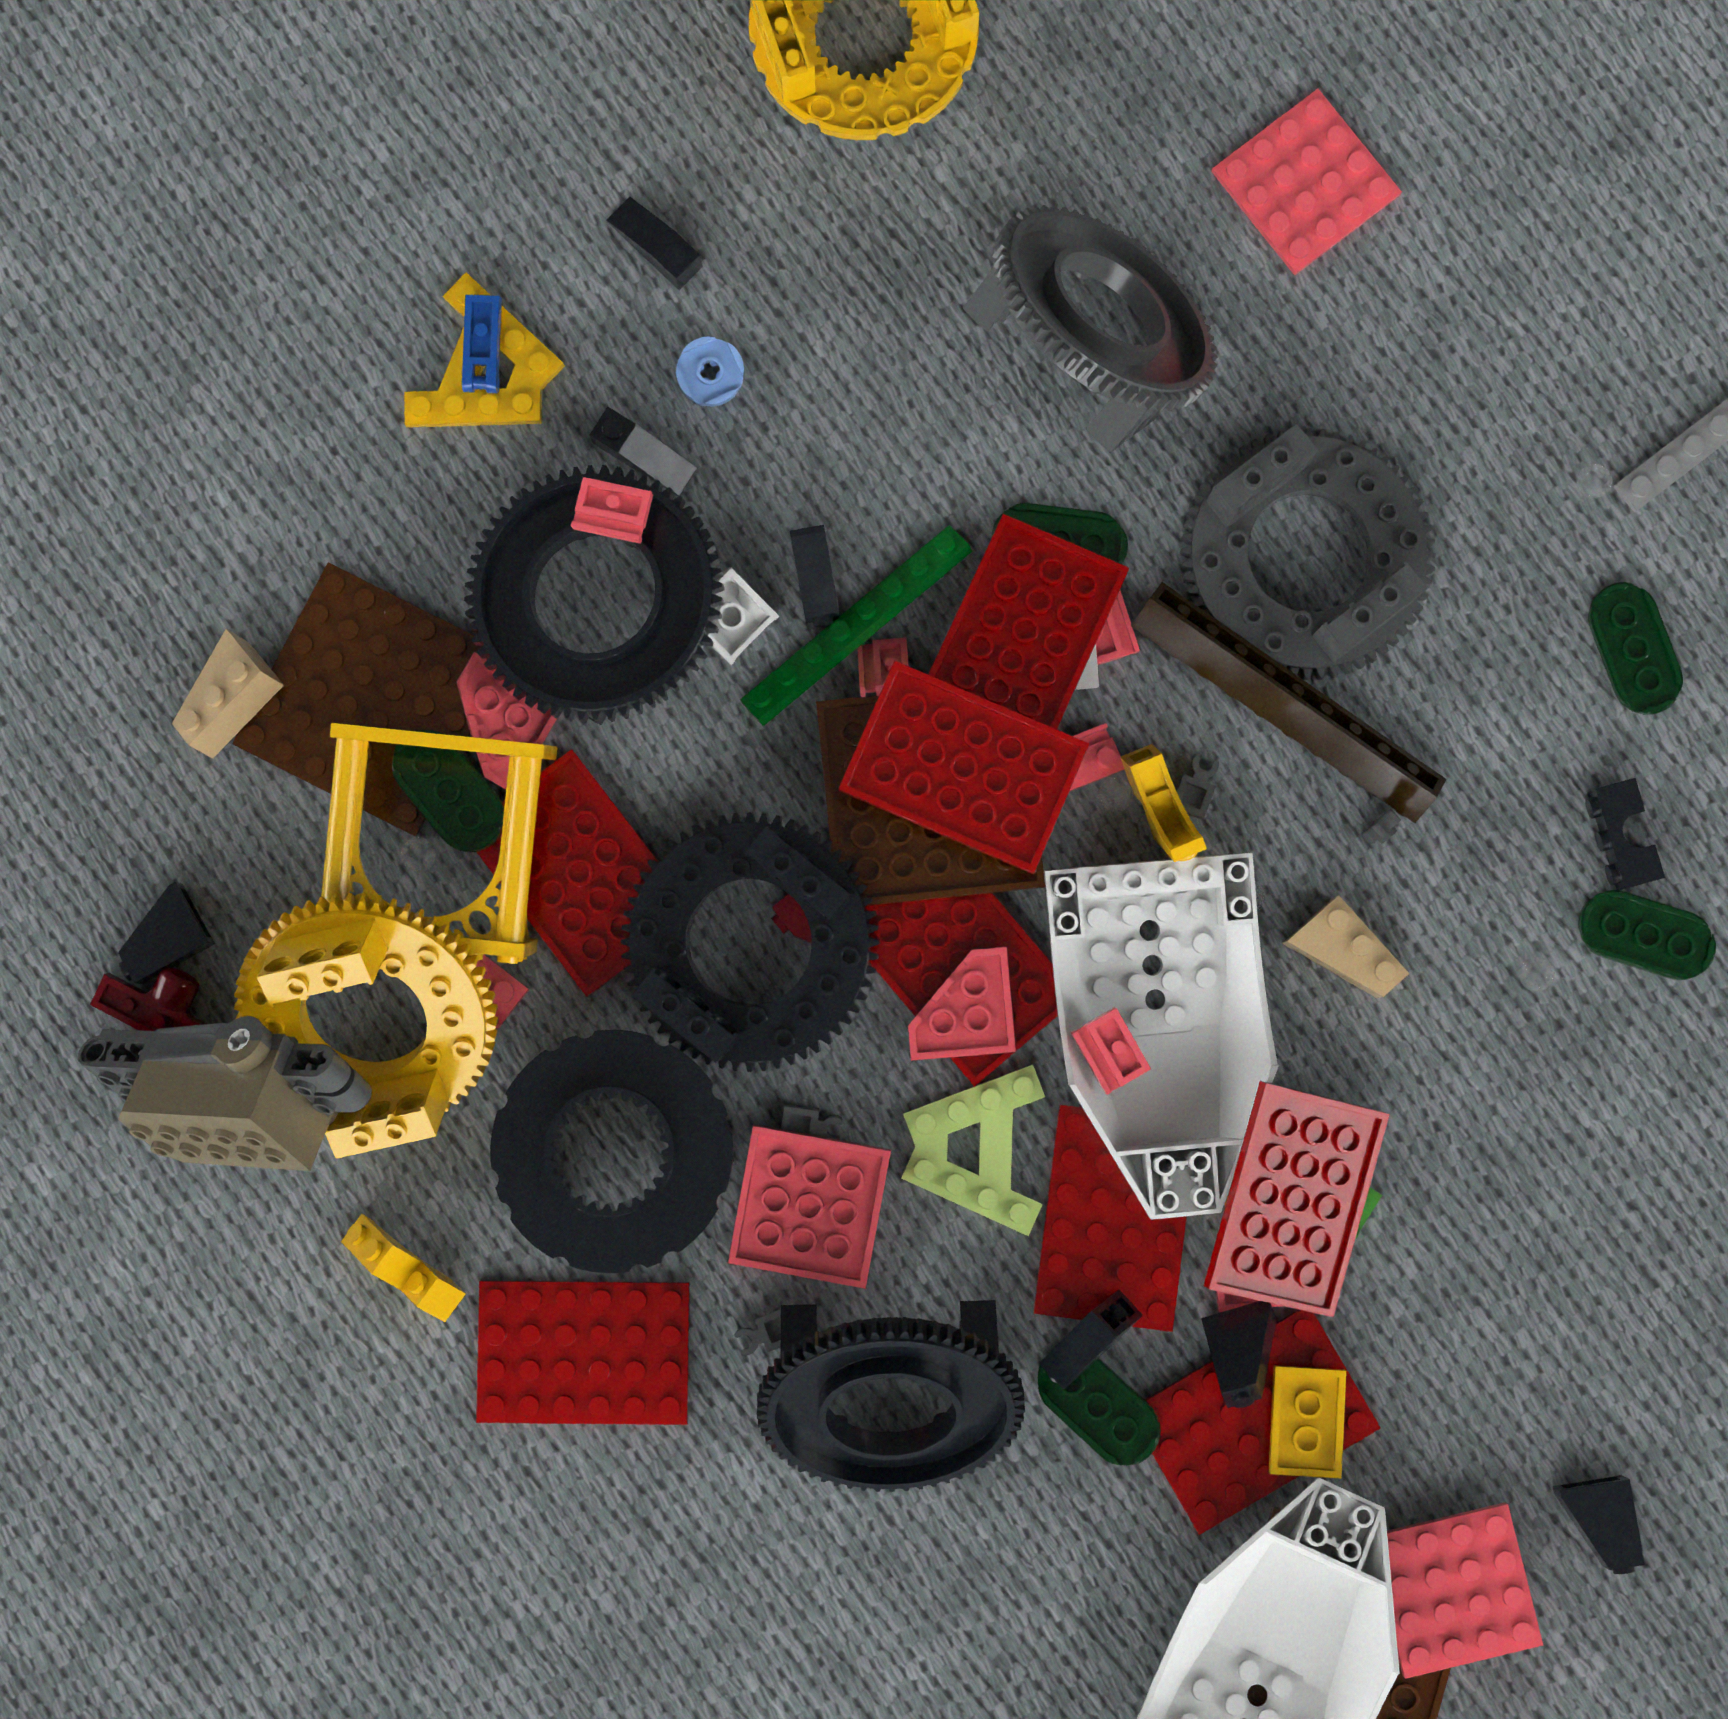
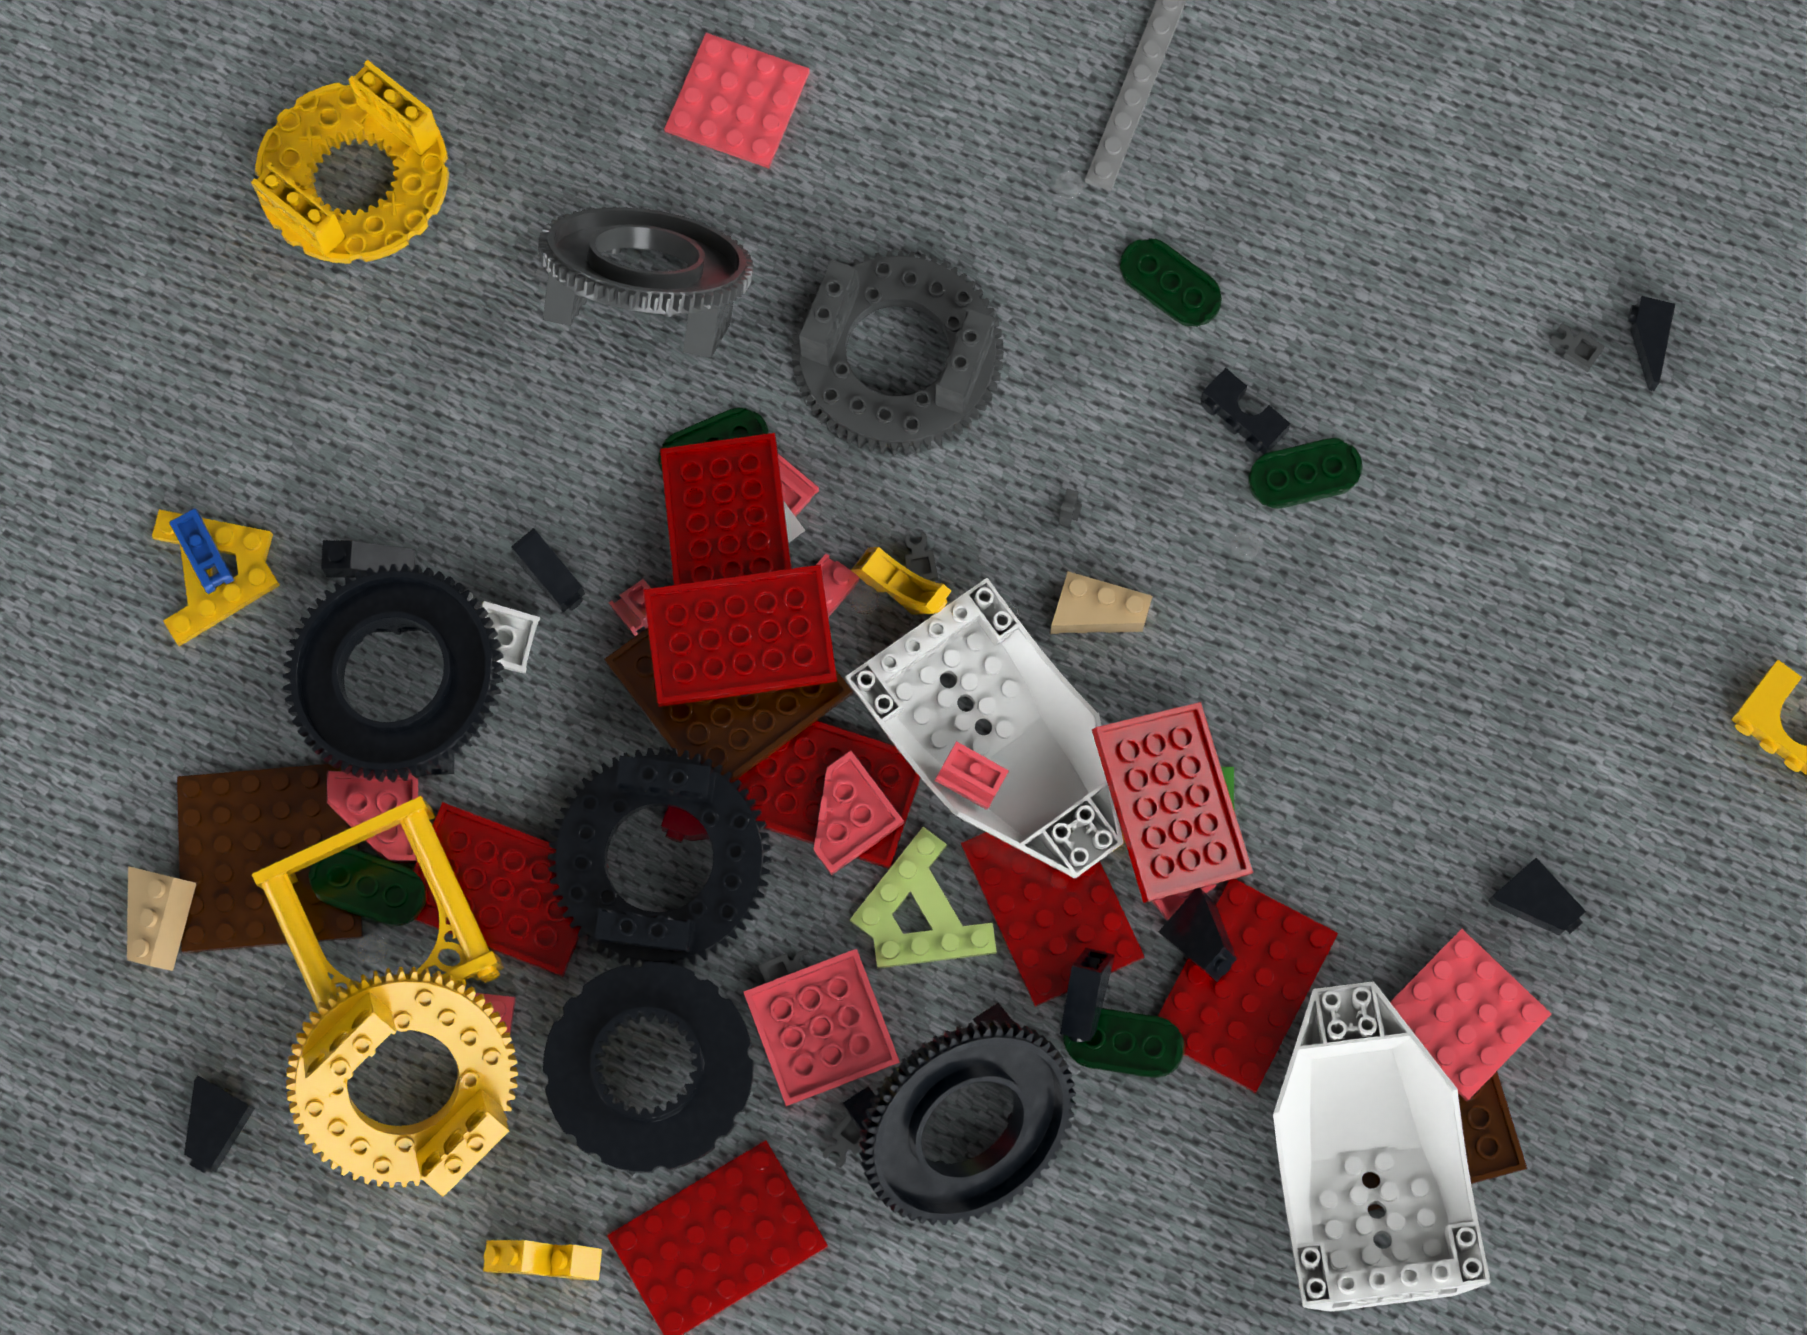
camera: 30 degrees left, 10 degrees down
(160, 1008) = (245, 1182): dark red plate -> none
(226, 1091) = (329, 1191): dark tan piece -> none
(612, 510) = (371, 602): coral plate -> none
(656, 242) = (290, 407): black slope -> none
(717, 353) = (382, 459): light blue plate -> none
(856, 625) = (600, 592): green plate -> none
(1289, 703) = (947, 460): dark brown brick -> none
(1307, 1421) = (1281, 957): yellow plate -> none

